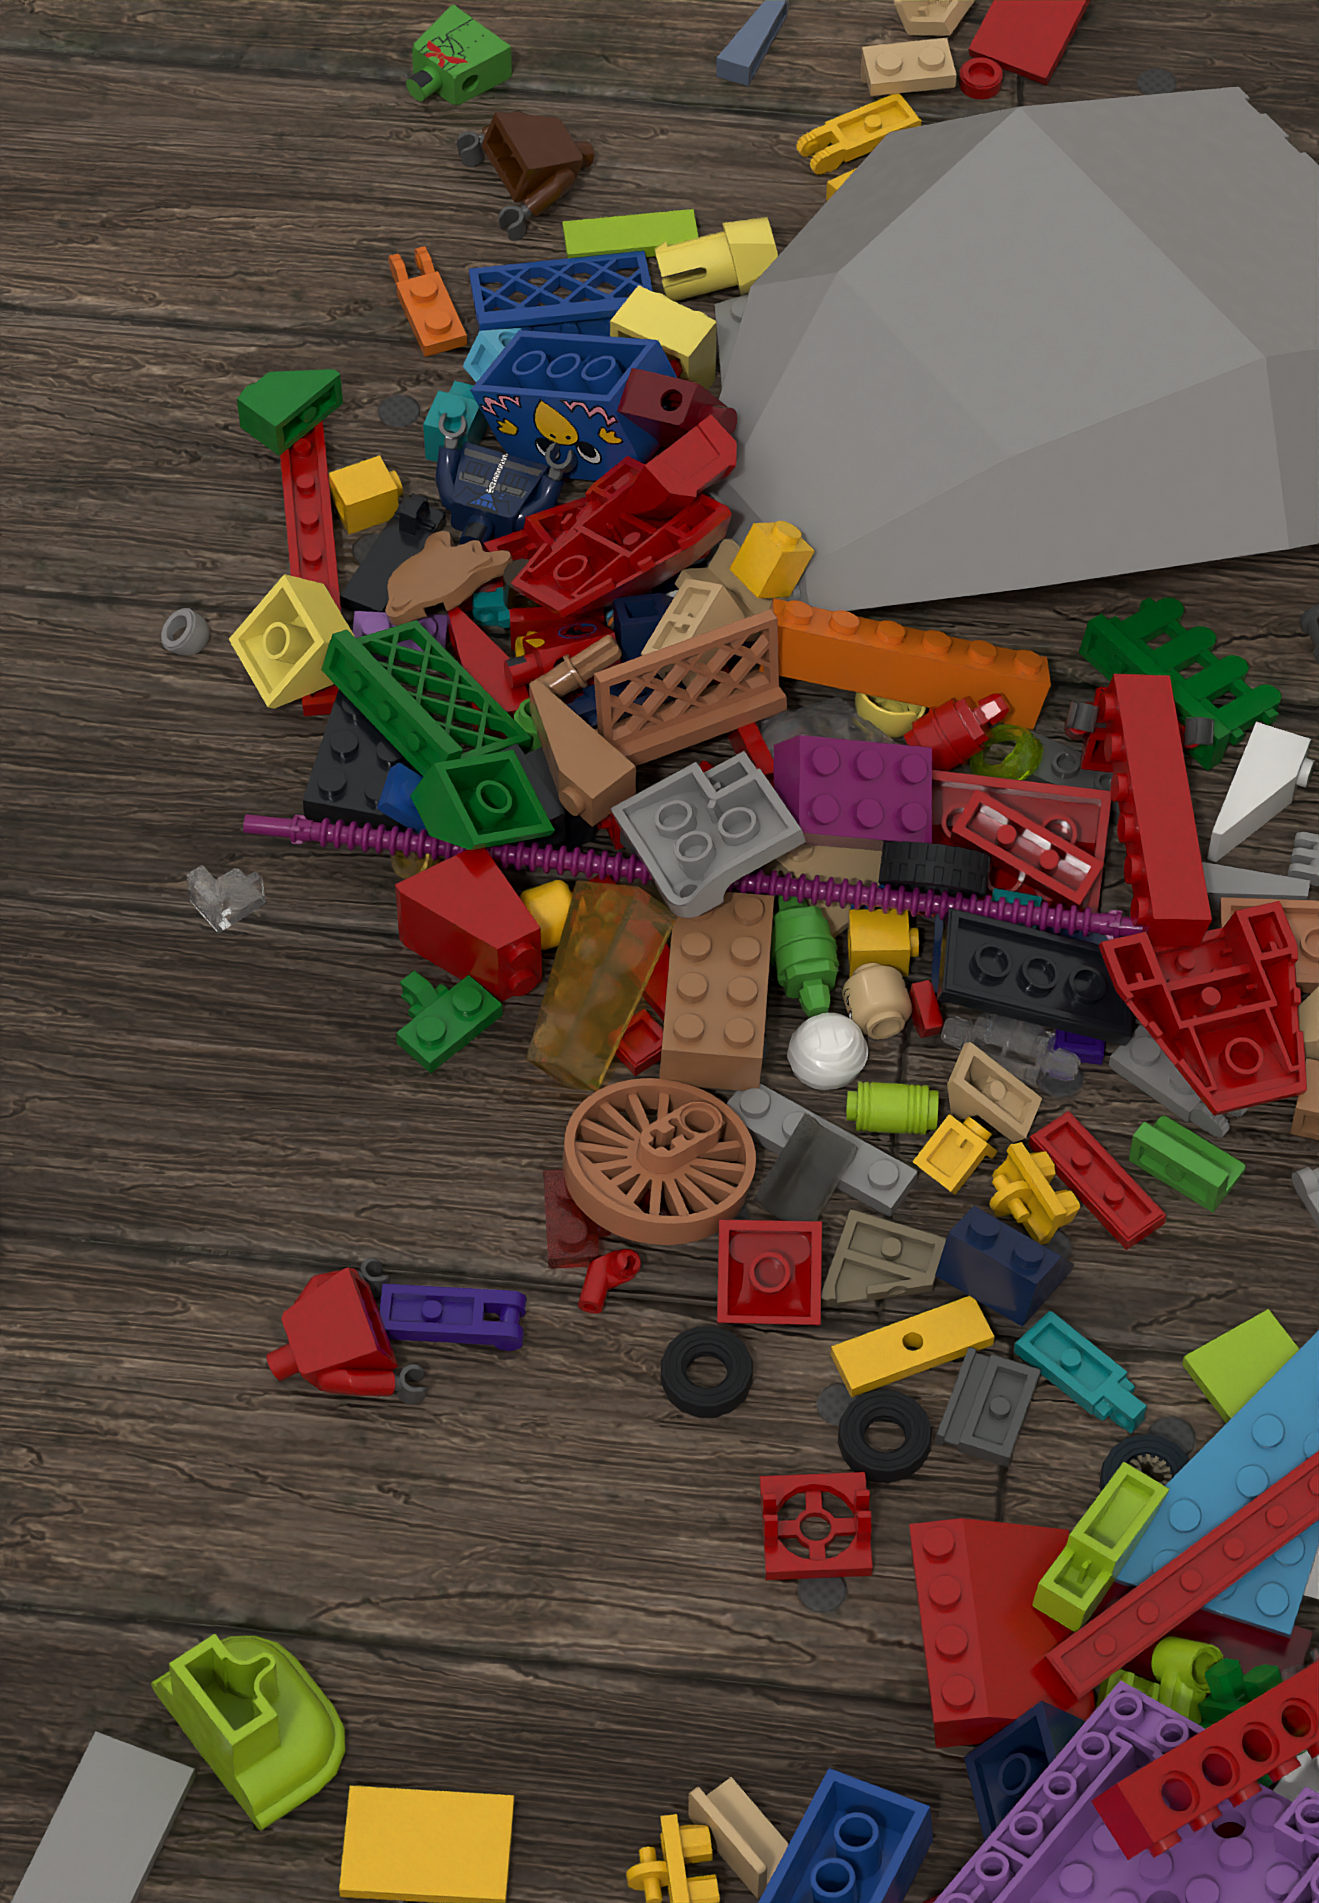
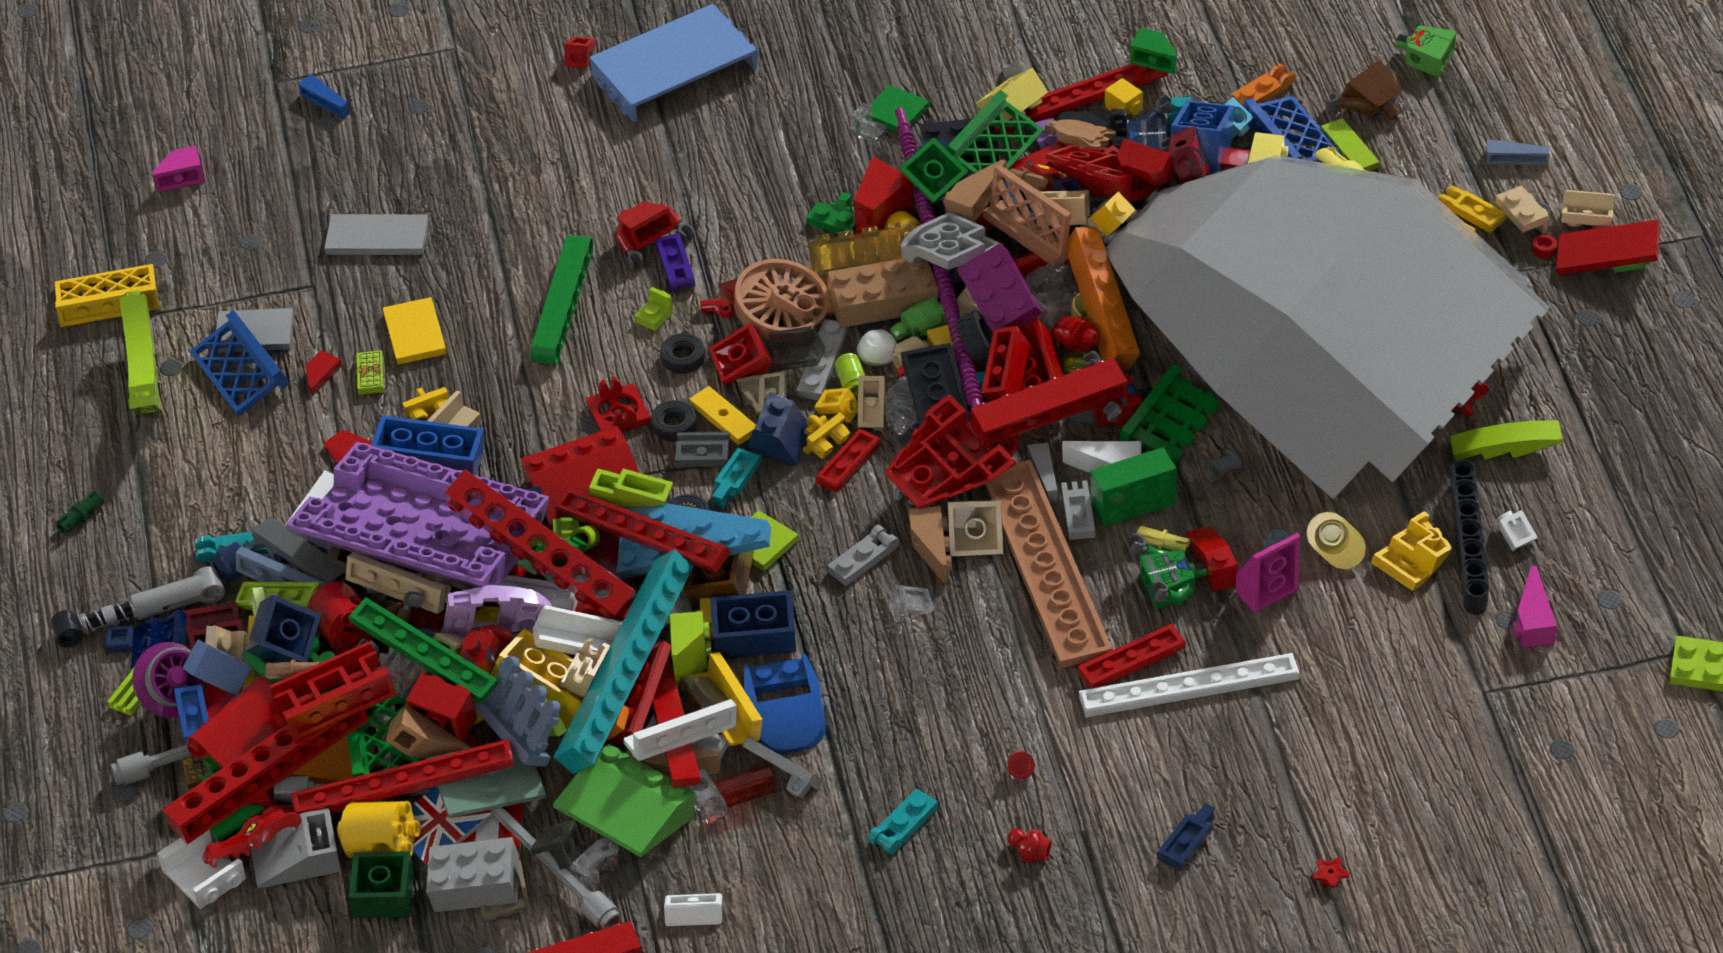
camera: 75 degrees right, 10 degrees down
(194, 833) = (892, 98): none -> green tile
(255, 1722) = (445, 252): lime piece -> none
(471, 1541) = (562, 300): none -> green beam
(568, 1386) = (656, 310): none -> lime bracket
(1185, 1162) = (870, 488): bright green panel -> none

